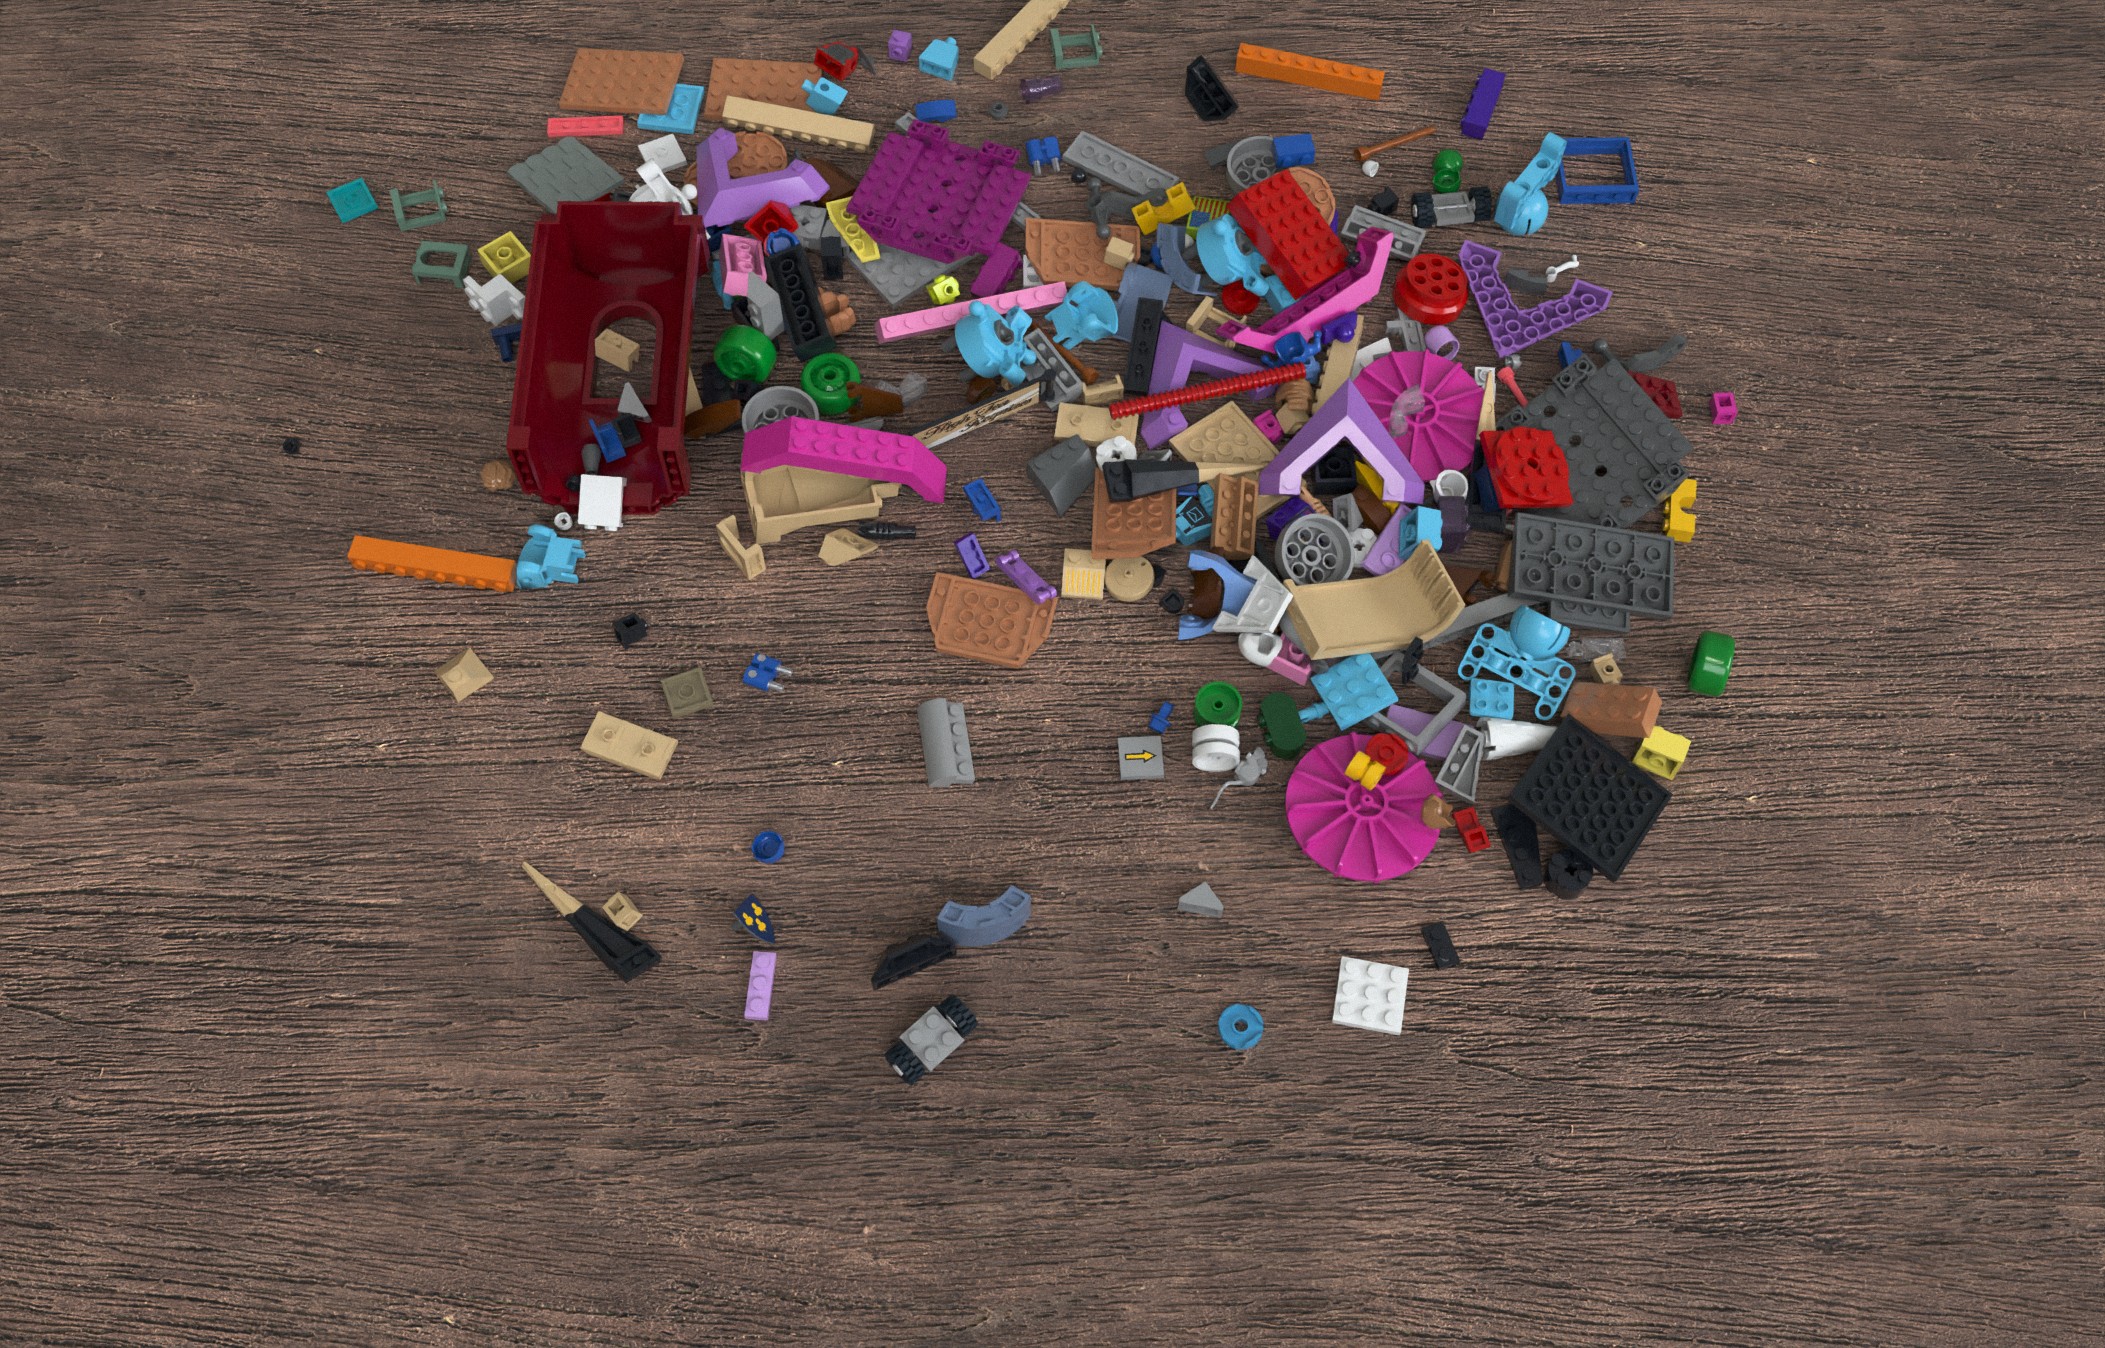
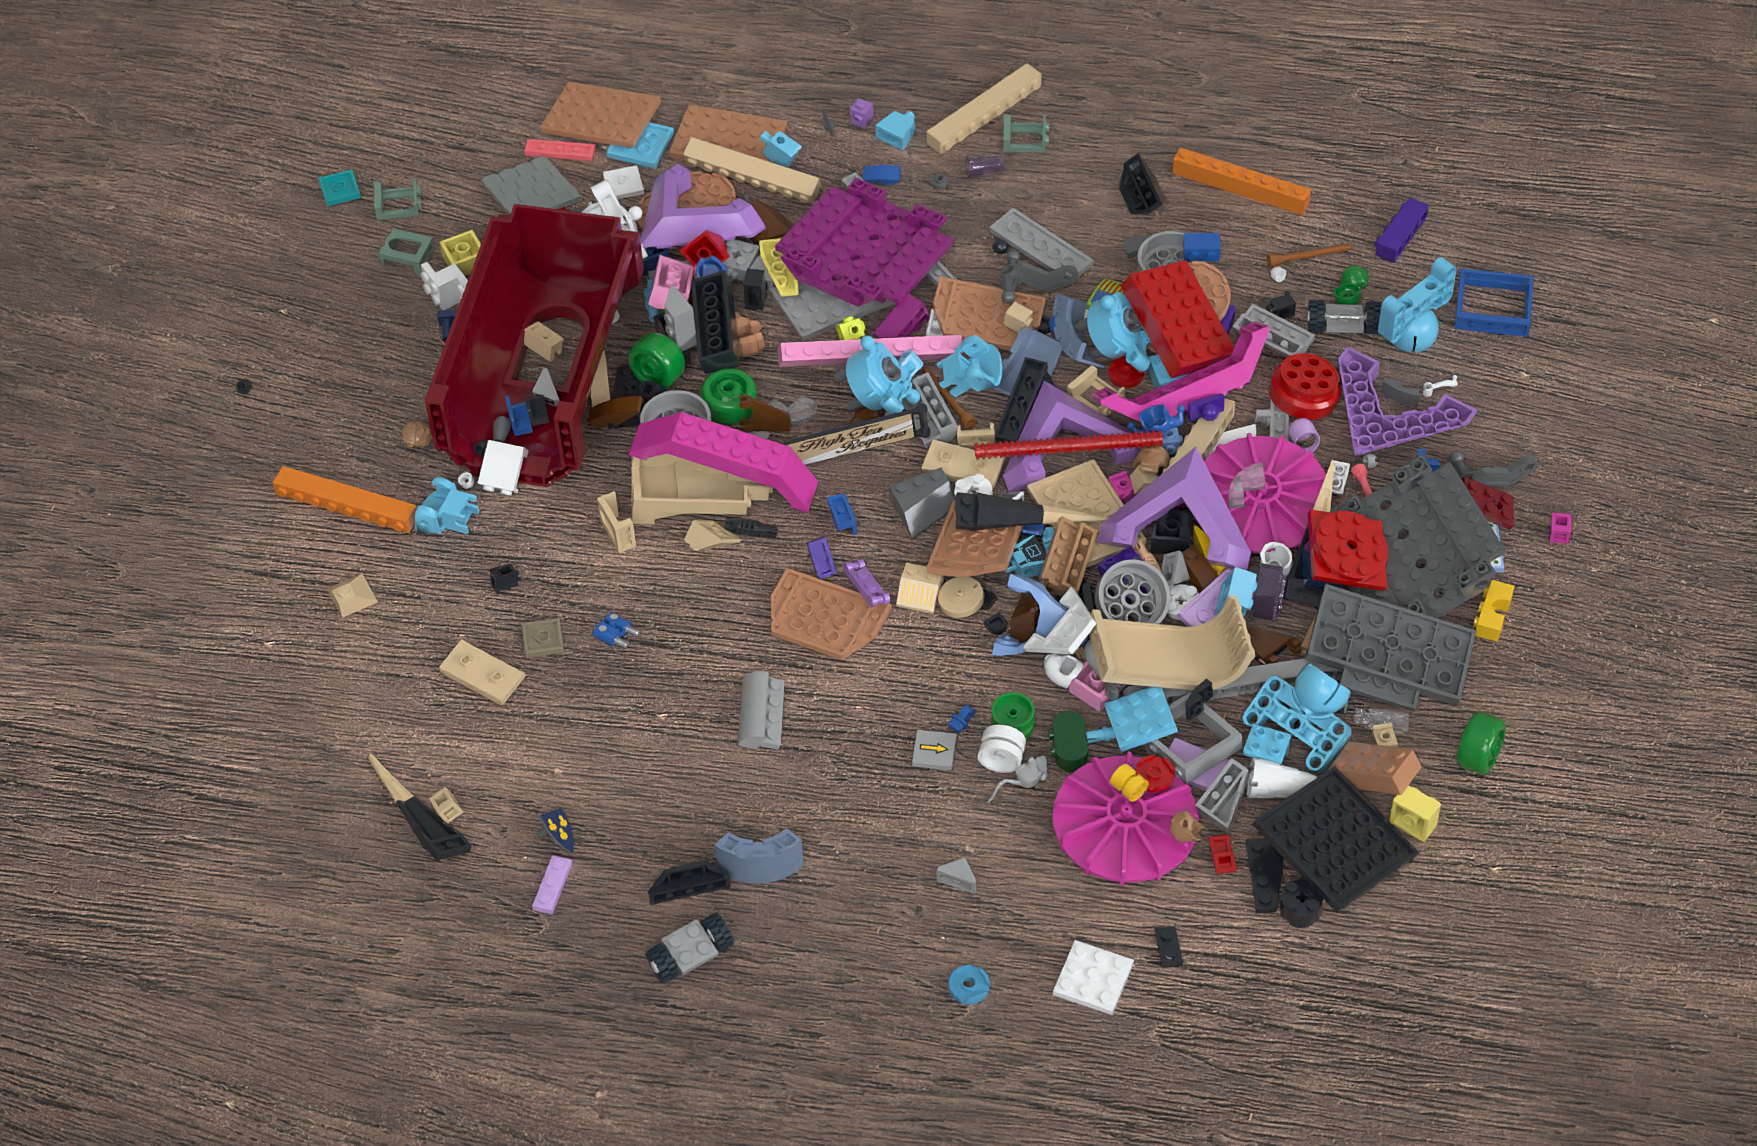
camera: 15 degrees right, 10 degrees down
(768, 847) = (584, 772): blue hair -> none
(837, 59) = (800, 118): red torso -> none
(1043, 152) = (972, 222): blue piece -> none
(1177, 205) = (1085, 281): yellow arch -> none
(1352, 259) = (1231, 348): black plate -> none

